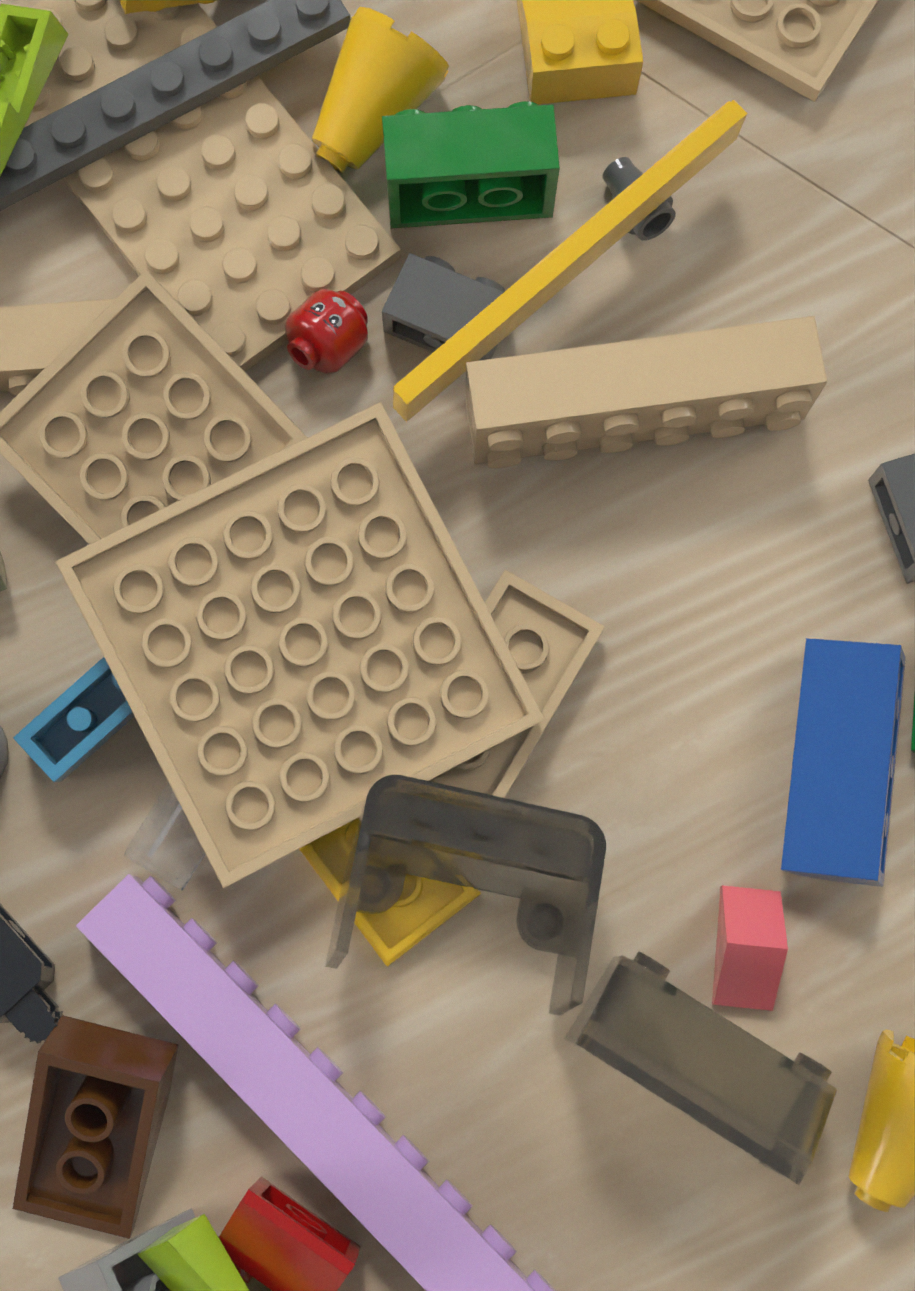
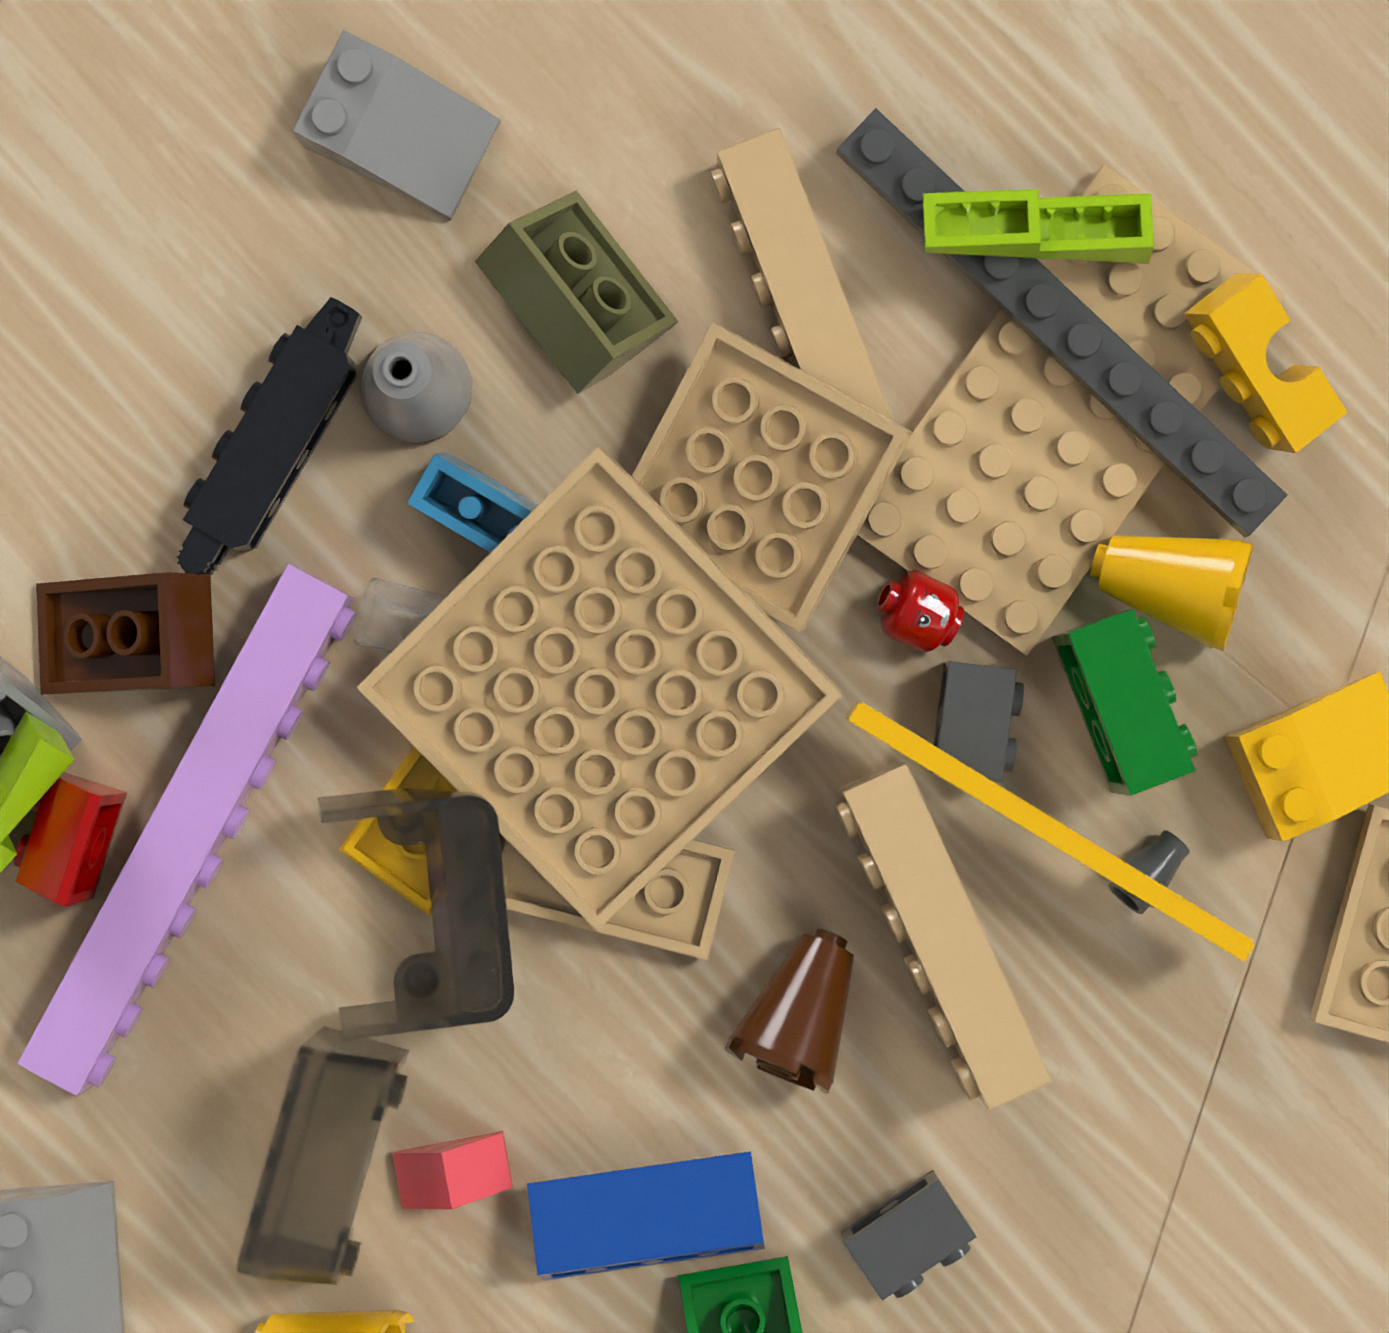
camera: 75 degrees right, 10 degrees up
(685, 552) = (800, 1014): none -> reddish brown cone

